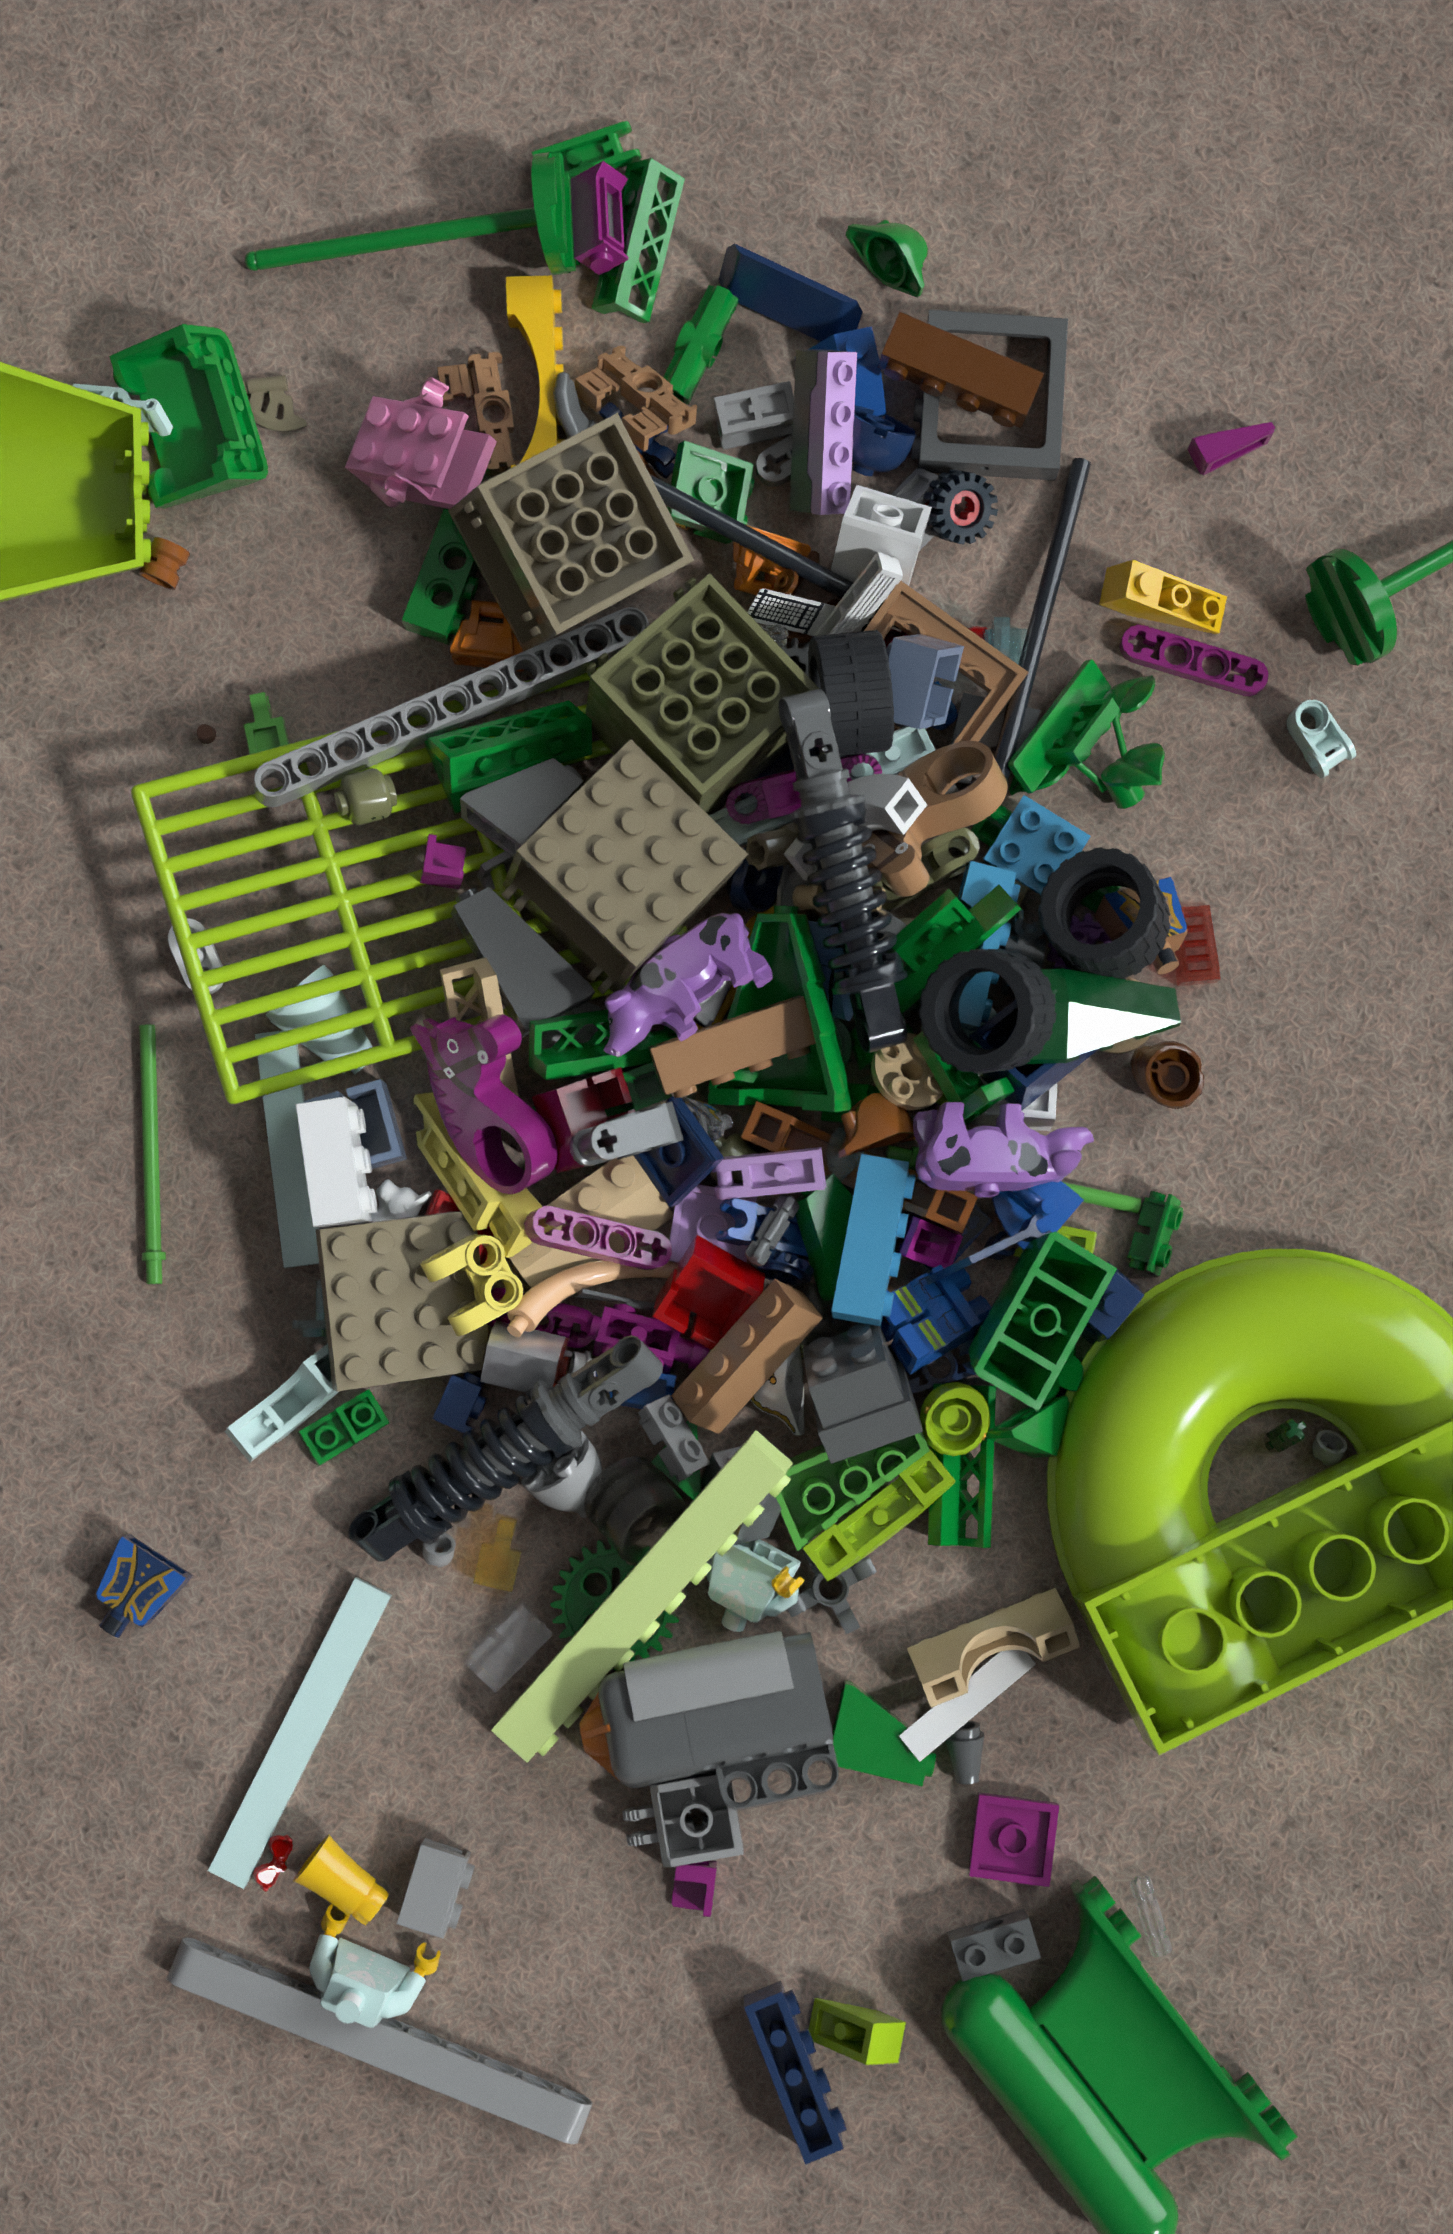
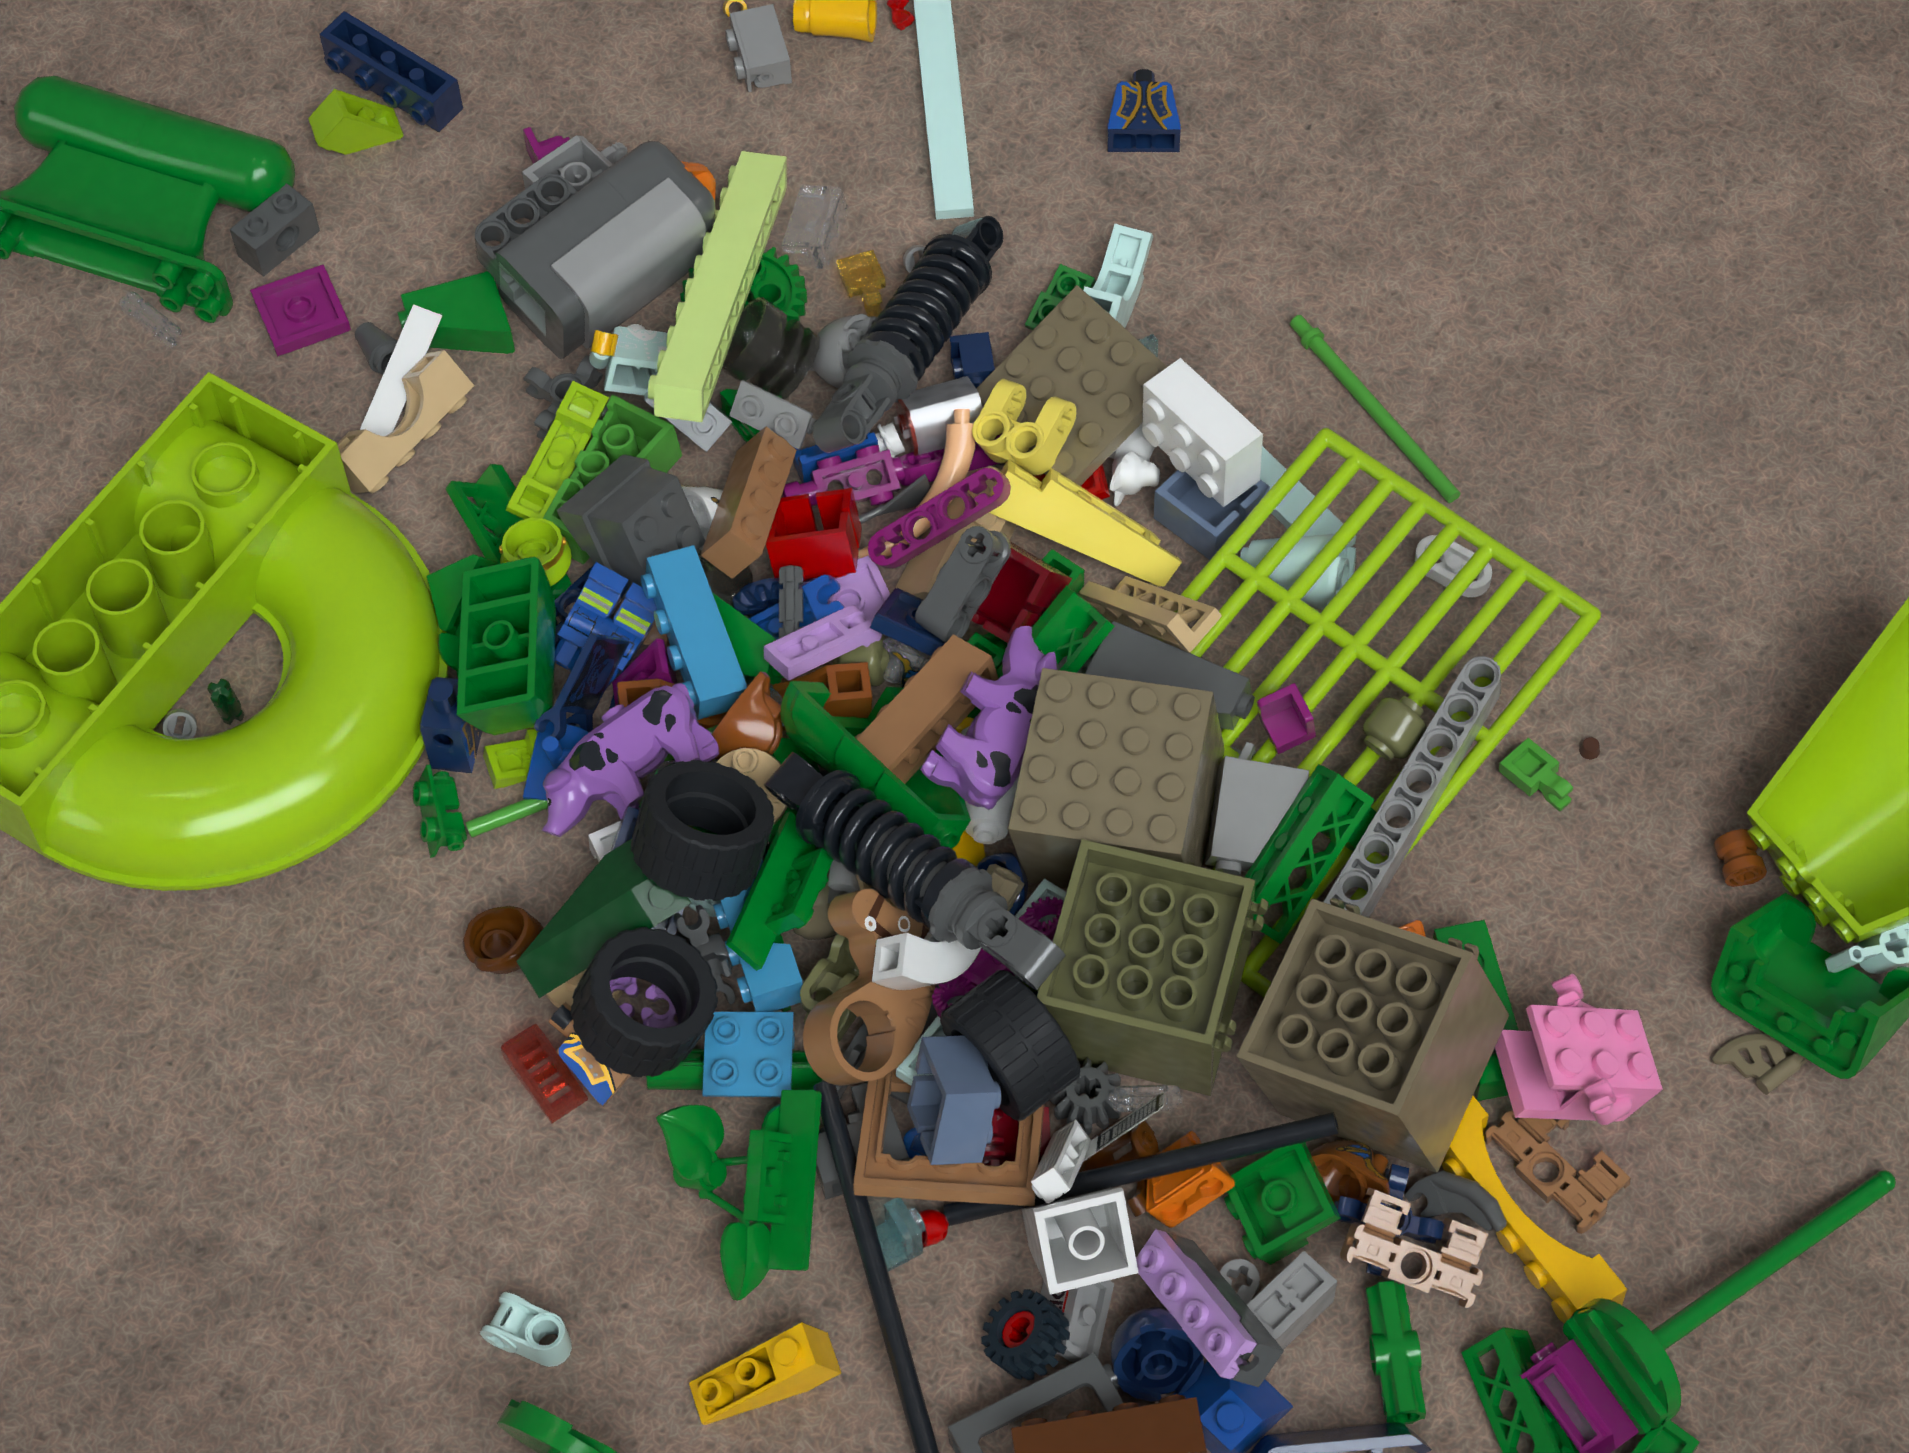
camera: 150 degrees right, 25 degrees down
(474, 1103) = (1104, 546): magenta animal -> none
(1195, 654) = (697, 1331): magenta beam -> none

